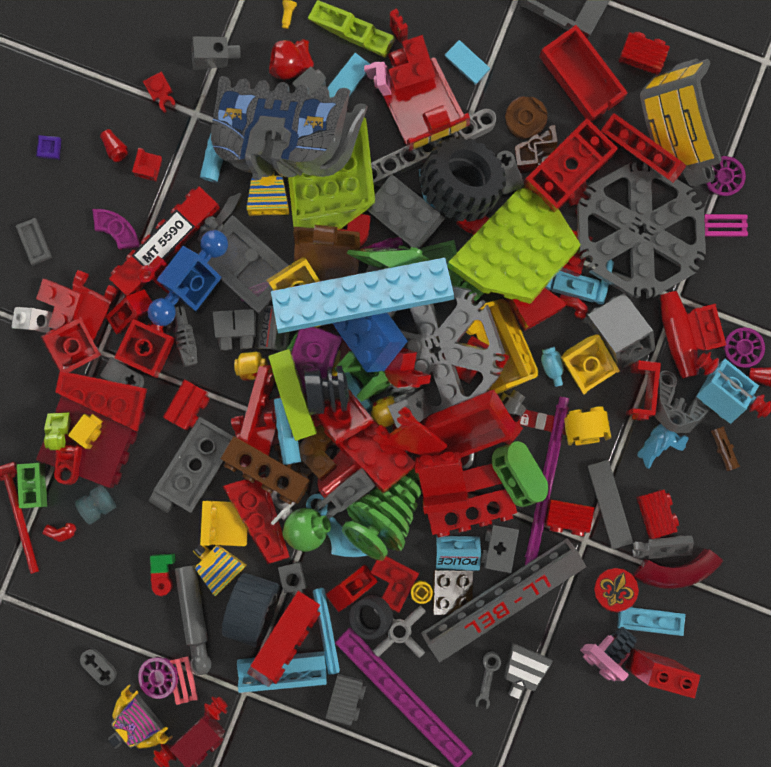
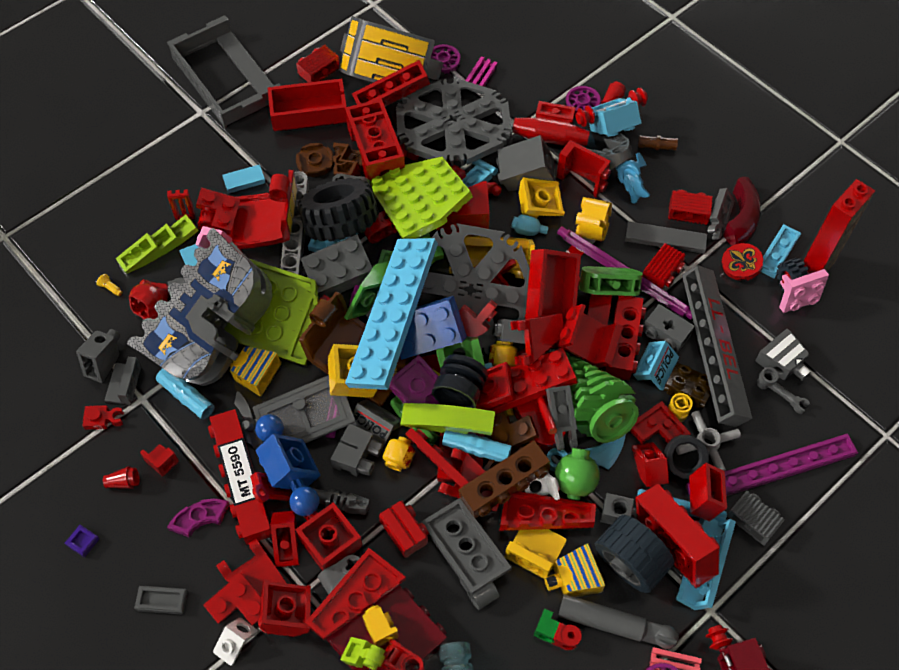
camera: 65 degrees left, 25 degrees down
(199, 88) = (123, 382): none -> dark grey panel
(339, 650) = (707, 492): none -> red brick

